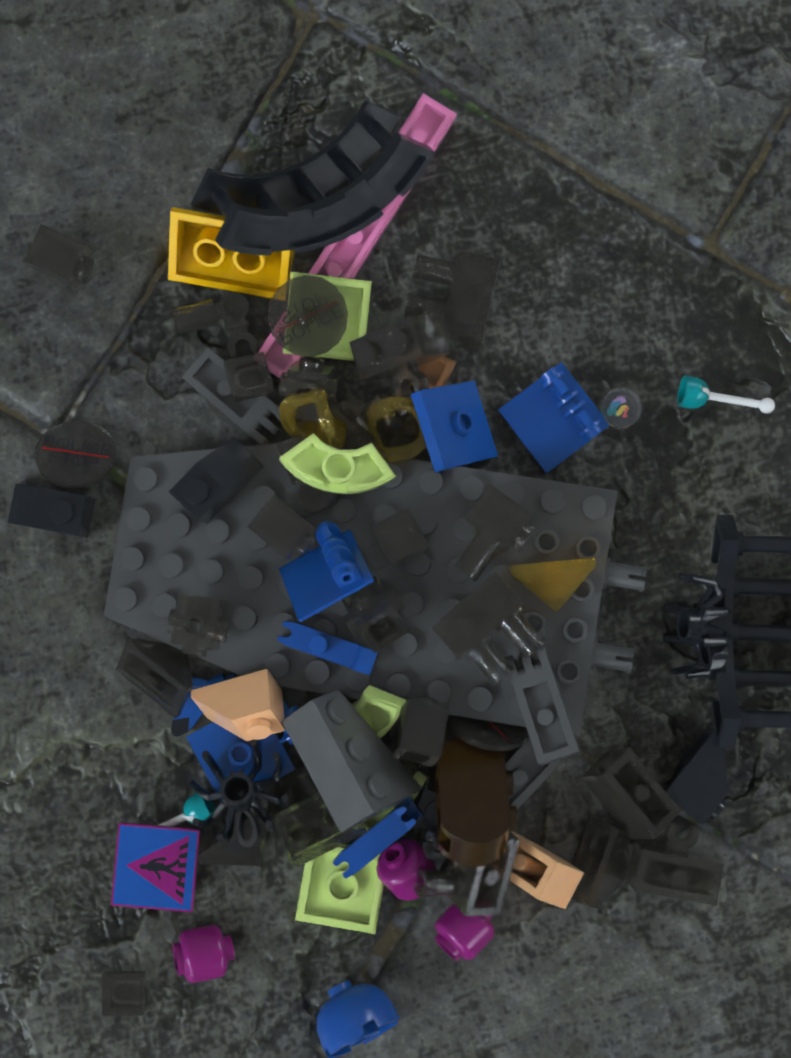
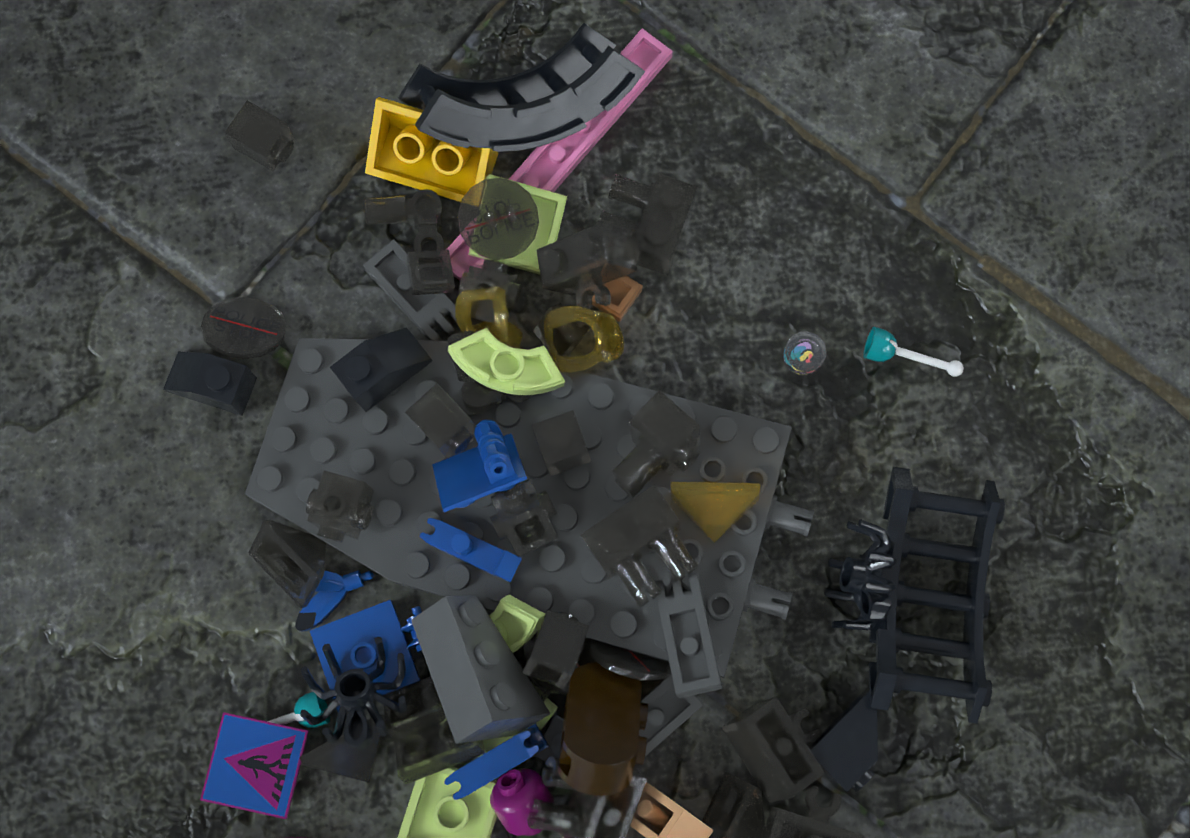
camera: 10 degrees right, 10 degrees down
(244, 705) = (374, 600): light nougat slope -> none
(454, 425) = (632, 345): blue plate -> none
(553, 417) = (735, 353): blue hinge -> none

